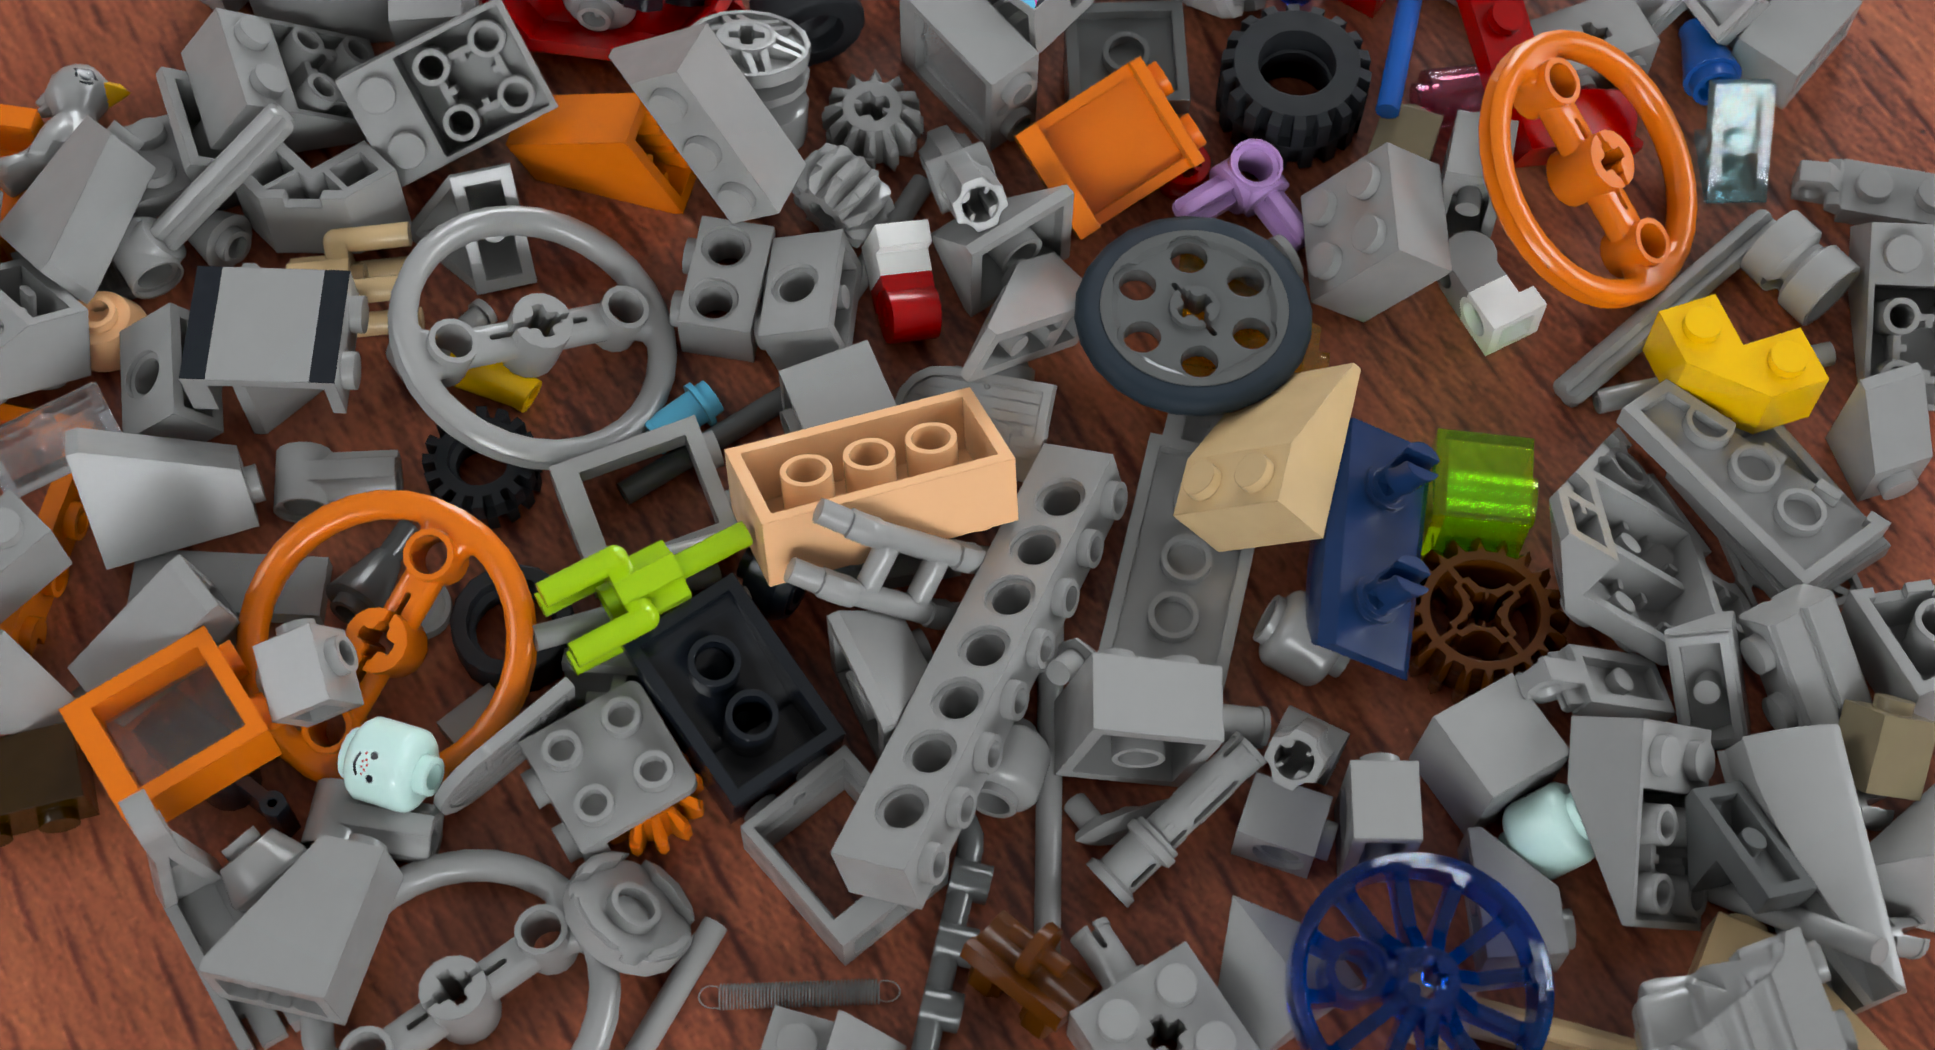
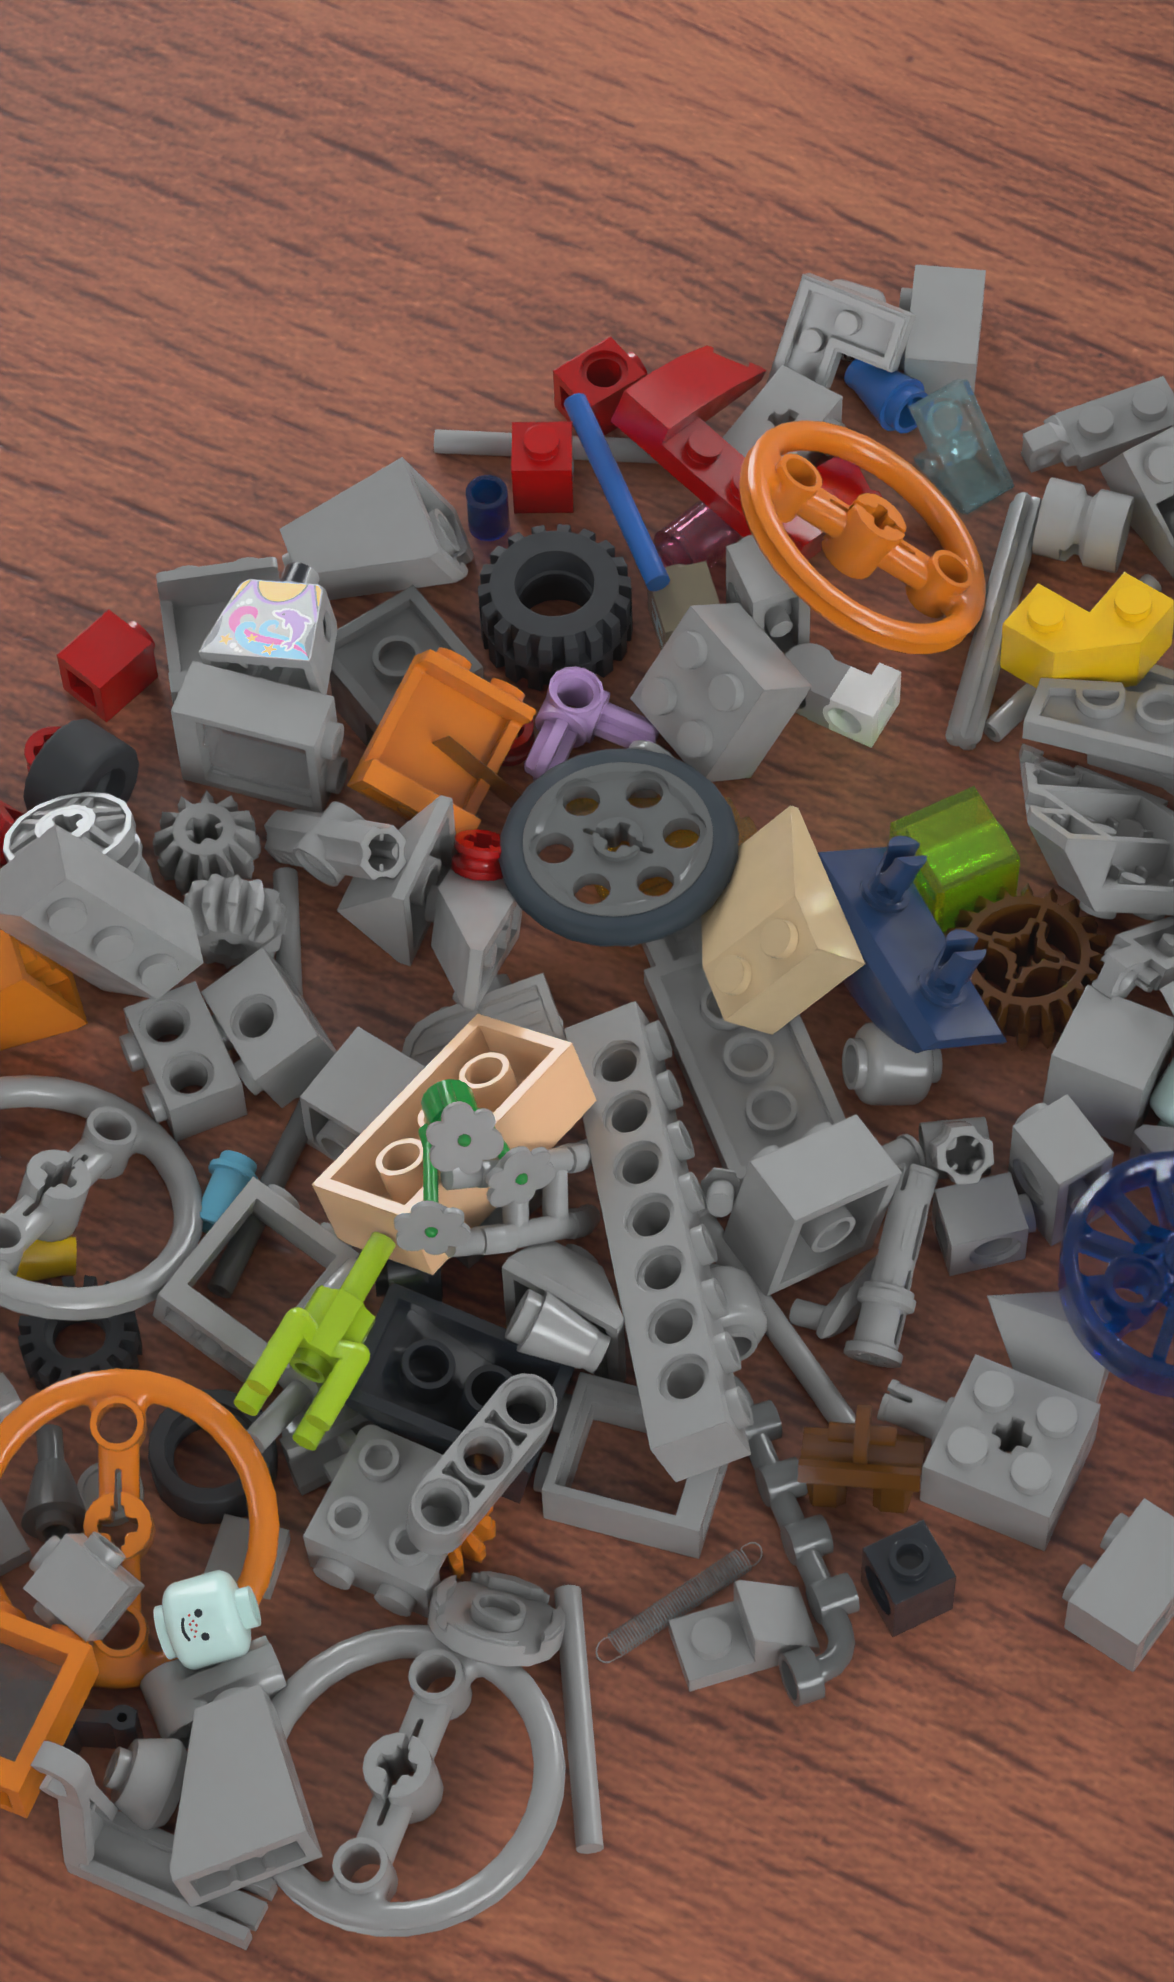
camera: 30 degrees left, 5 degrees down
(502, 751) = (292, 1548): light grey window -> none
(712, 749) = (491, 1434): none -> light grey beam
(834, 700) = (555, 1332): none -> light grey cone
(836, 486) = (462, 1137): none -> light grey plant
(903, 281) = (338, 966): leg -> none
(1074, 253) = (477, 855): none -> red bush
(1126, 180) = (478, 769): none -> reddish brown sticker

